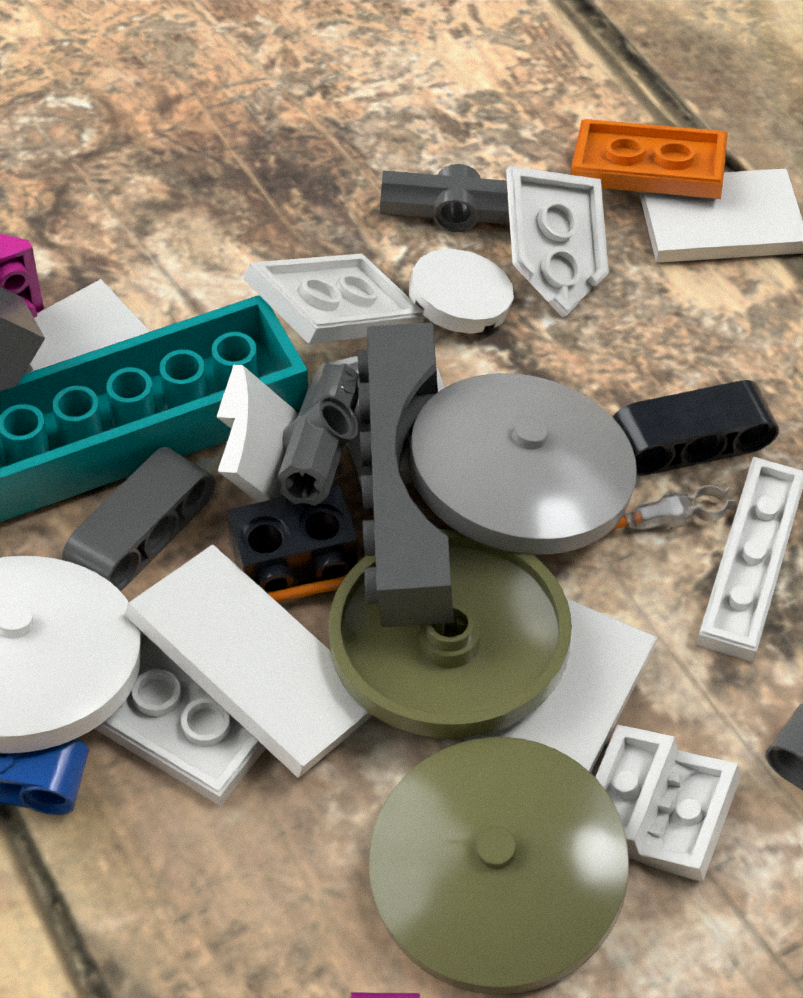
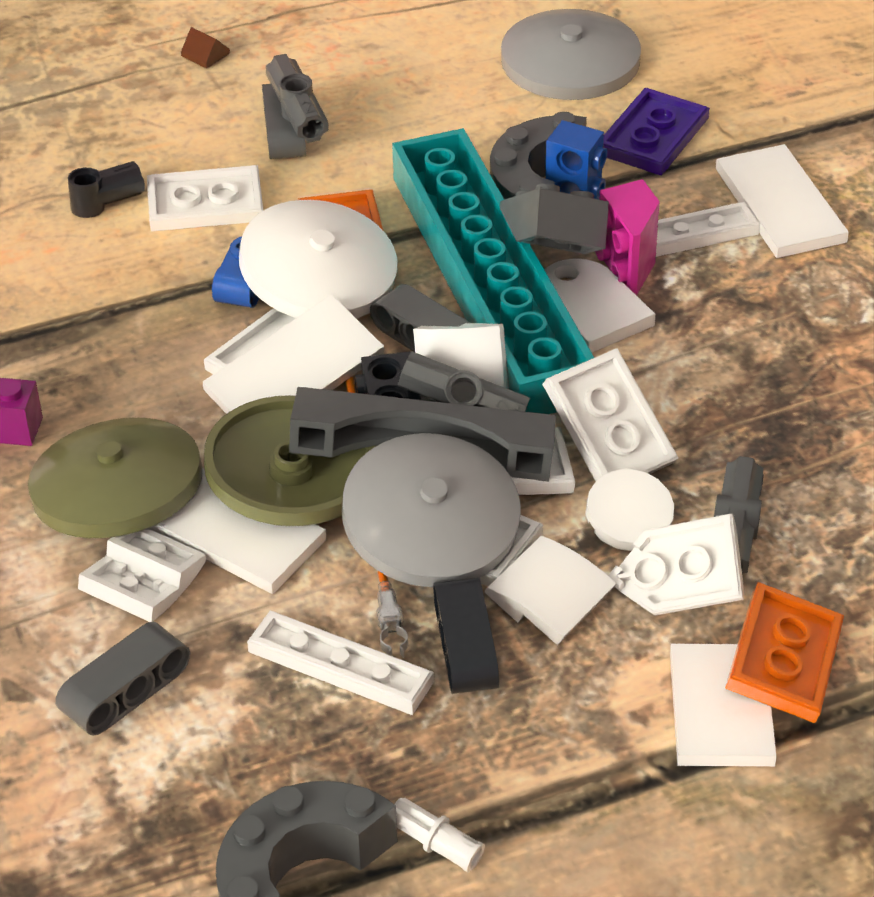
camera: 100 degrees right, 10 degrees down
(598, 356) = (550, 588): none -> white slope

